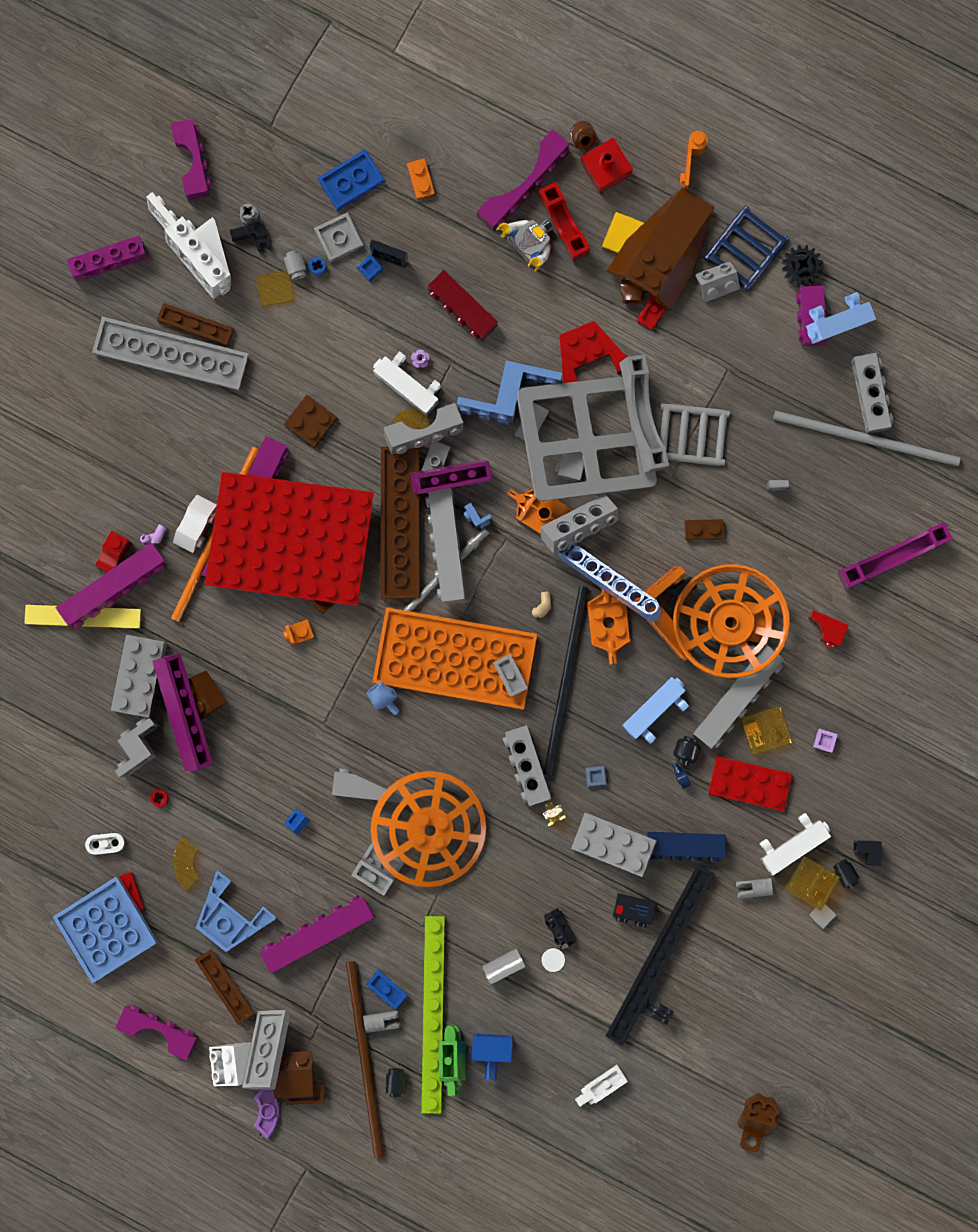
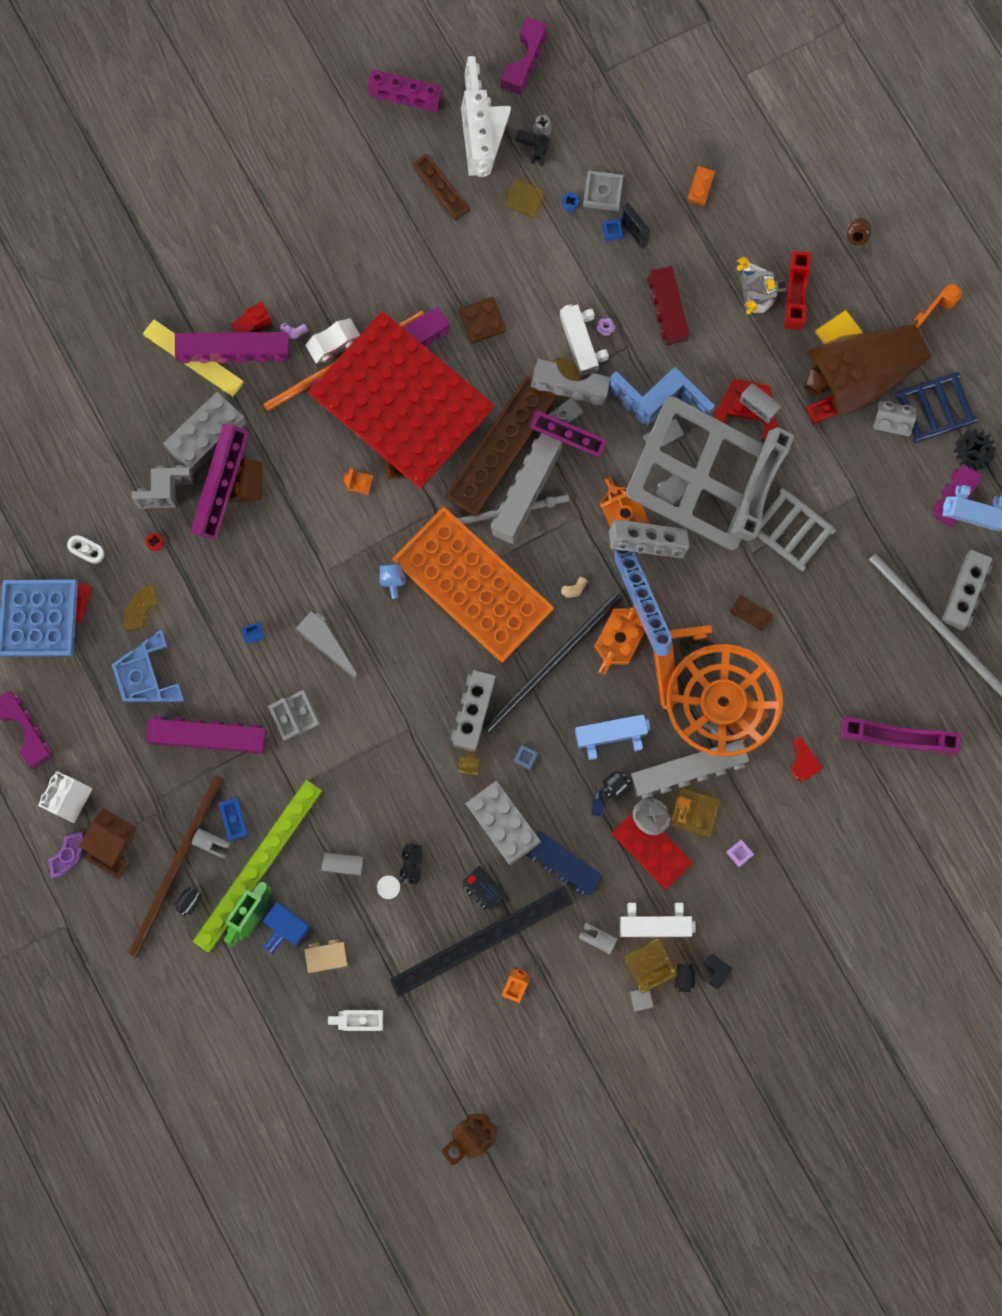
camera: 30 degrees right, 5 degrees down
(170, 353) = (405, 196): light grey plate -> none
(224, 986) = (102, 729): reddish brown plate -> none
(266, 1050) = (99, 801): light grey plate -> none
(295, 265) = (553, 189): light grey brick -> none
(351, 180) = (643, 152): blue tile -> none
(416, 828) = (352, 695): orange dish -> none
(471, 515) = (563, 477): medium blue bracket -> none
(498, 208) = (824, 228): magenta arch -> none
(510, 675) = (509, 626): light grey plate -> none
(541, 1051) = (326, 957): none -> tan brick
(597, 342) = (760, 403): none -> light grey brick
(606, 165) = (862, 268): red brick -> none
(659, 1011) = (448, 988): black wheel -> none
(712, 971) = (516, 985): none -> orange bracket
(733, 758) = (651, 816): none -> light grey tile
(777, 485) = (837, 615): light grey tile -> none

